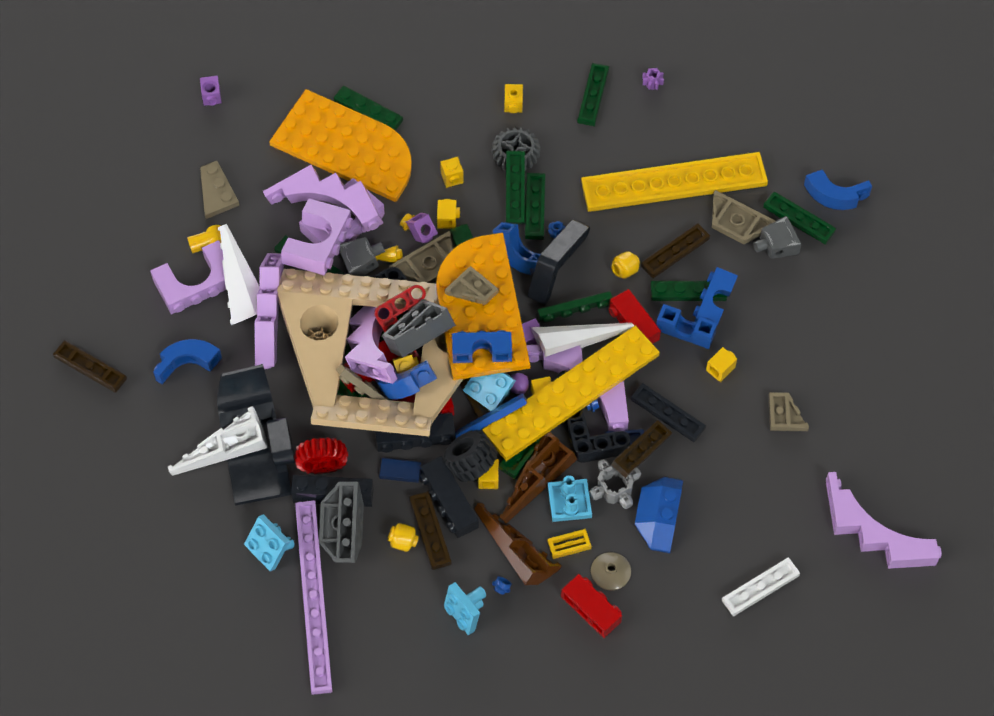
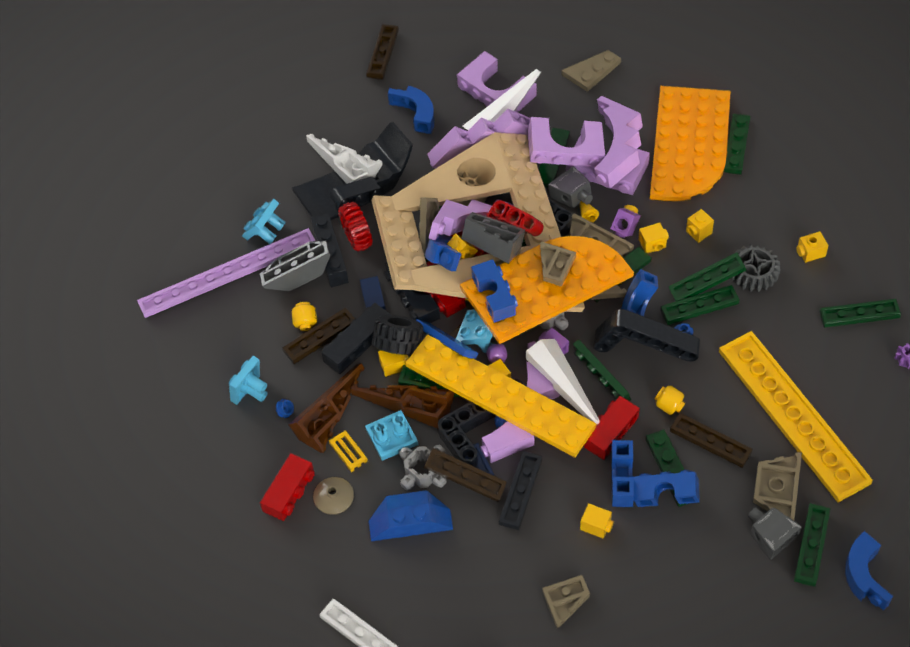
camera: 75 degrees right, 5 degrees down
(203, 239) = (544, 82): yellow piece -> none
(210, 90) = (689, 28): medium lavender brick -> none

